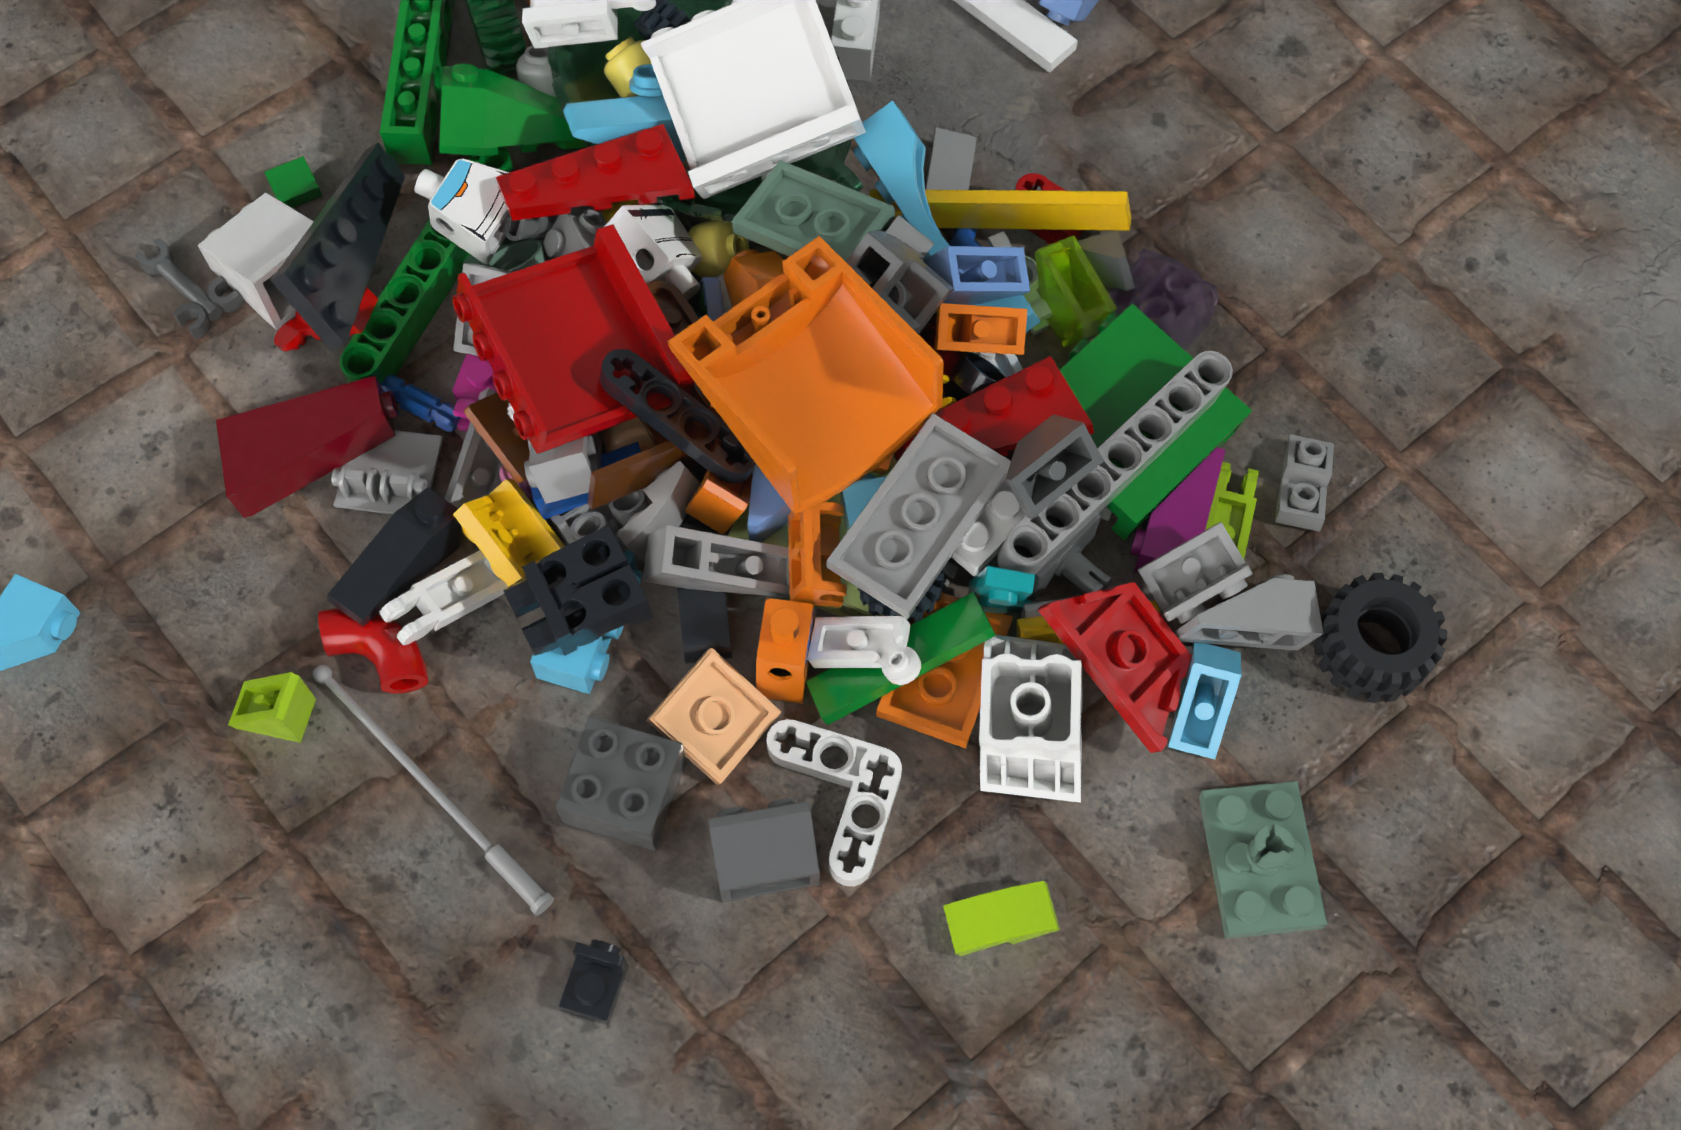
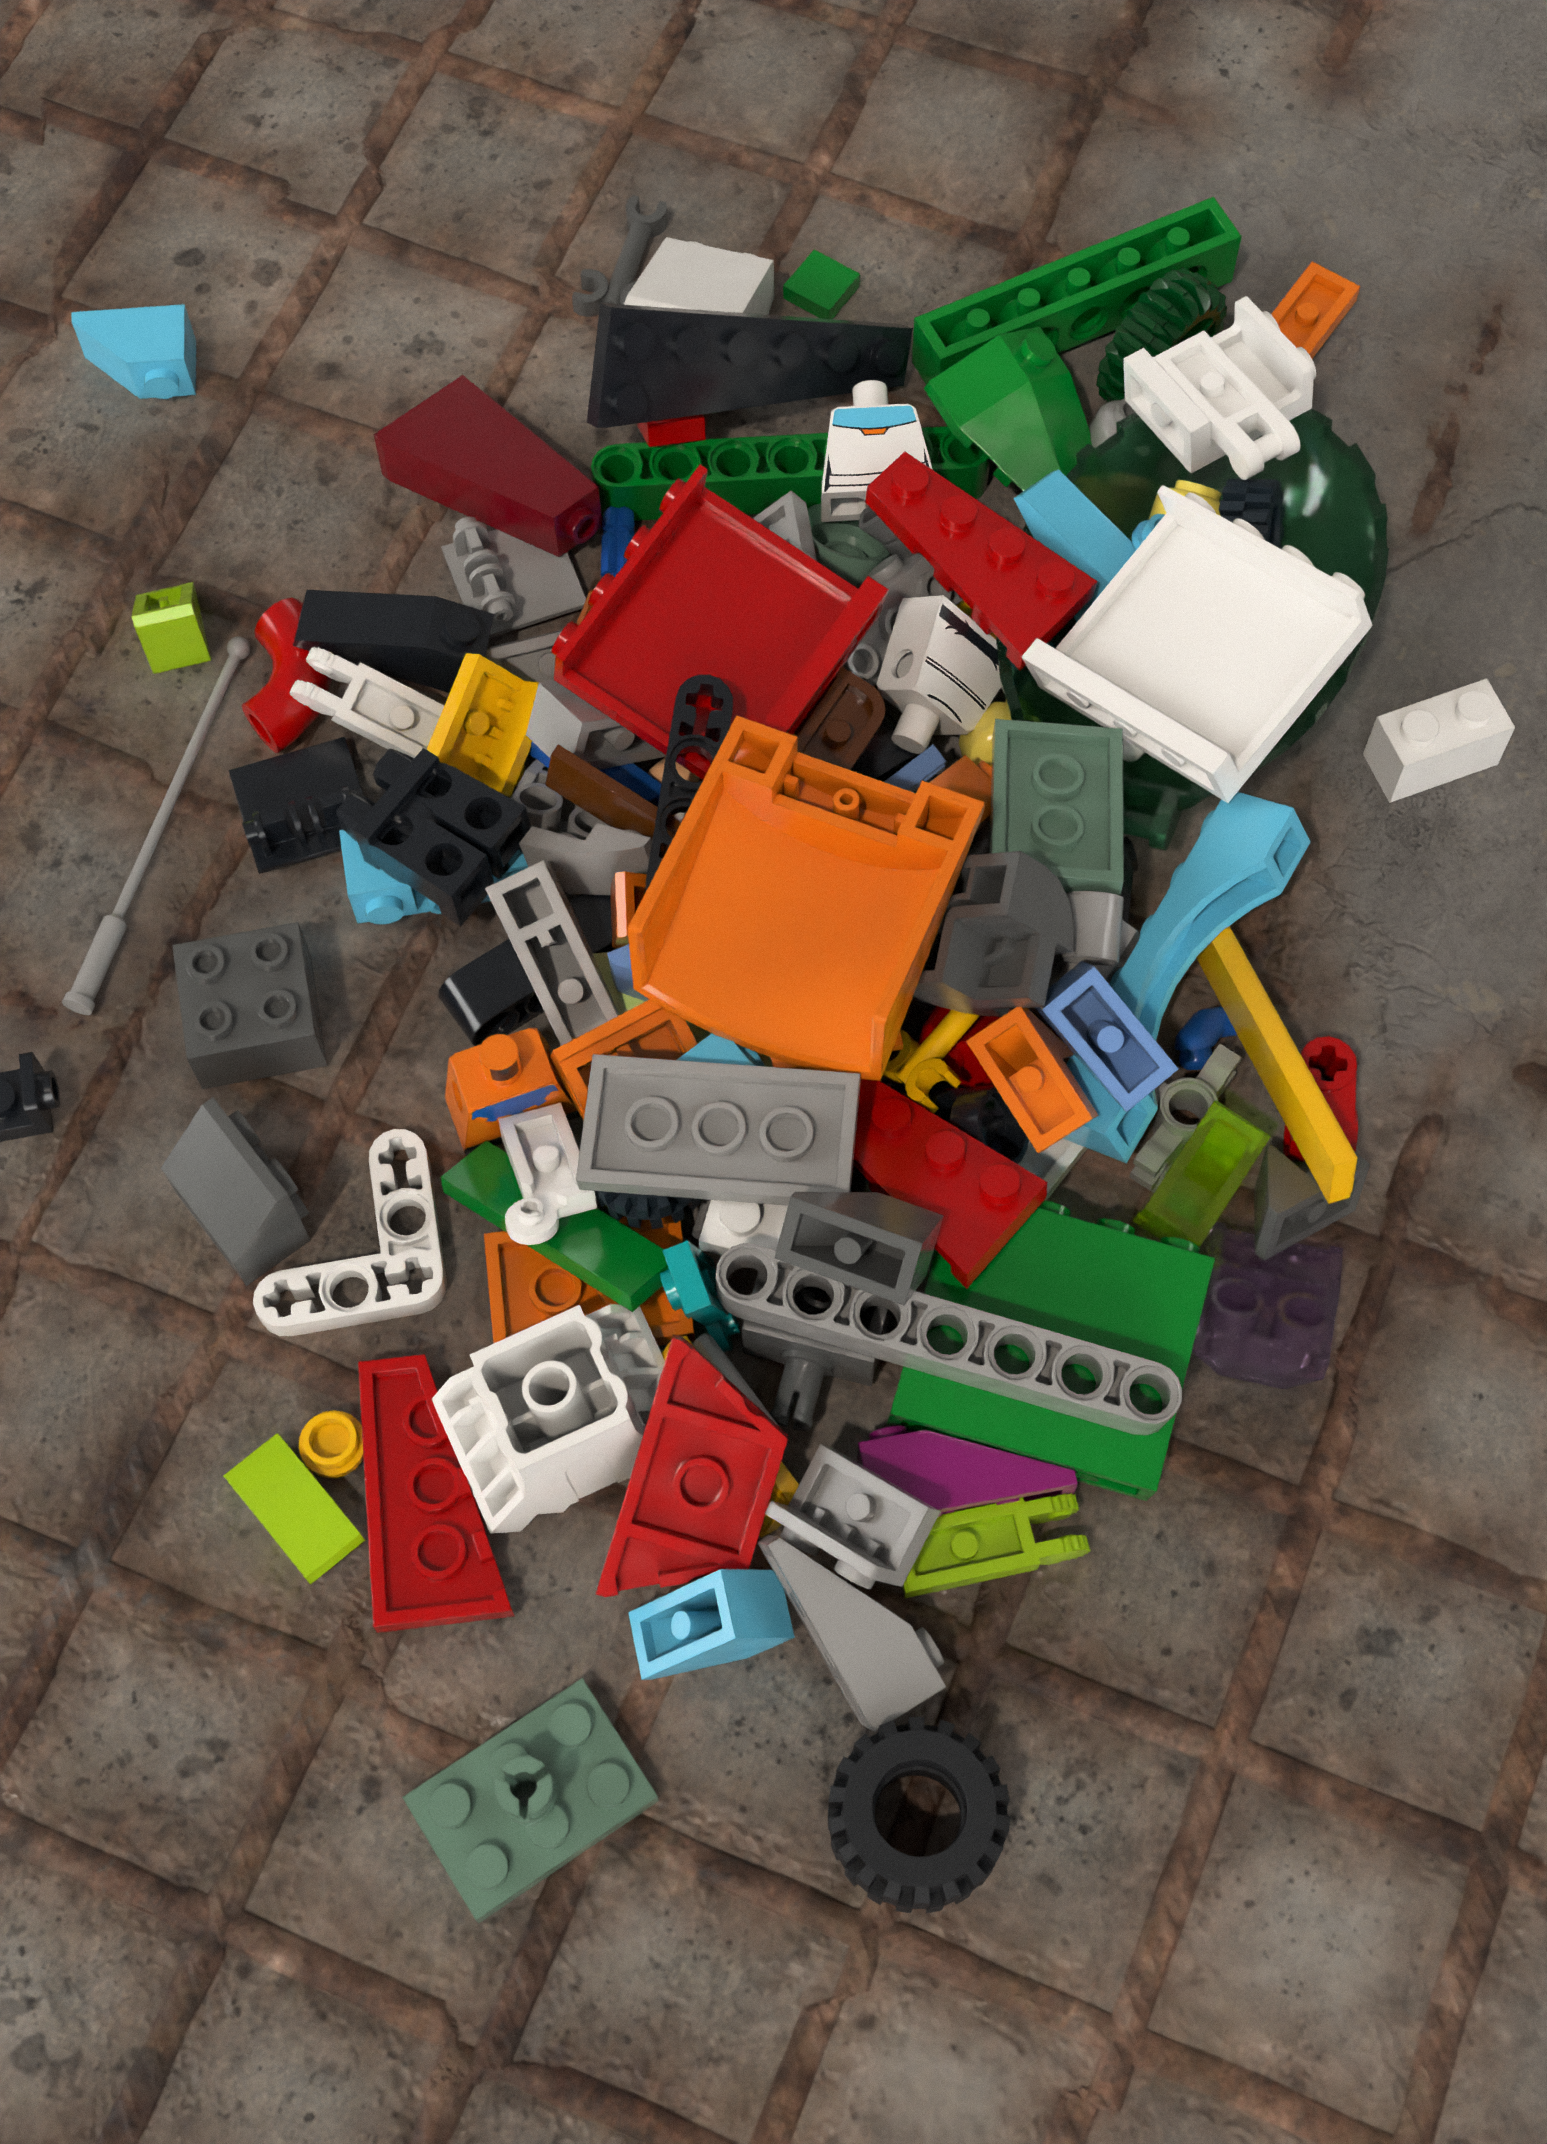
camera: 65 degrees right, 0 degrees up
(479, 686) = (293, 803): none -> black hinge
(714, 716) = (384, 1060): light nougat tile -> none
(950, 161) = (1308, 951): light grey slope -> none
(967, 874) = (332, 1444): none -> yellow plate
(1052, 840) = (422, 1519): none -> red wing
(1304, 483) = (1113, 1622): light grey slope -> none

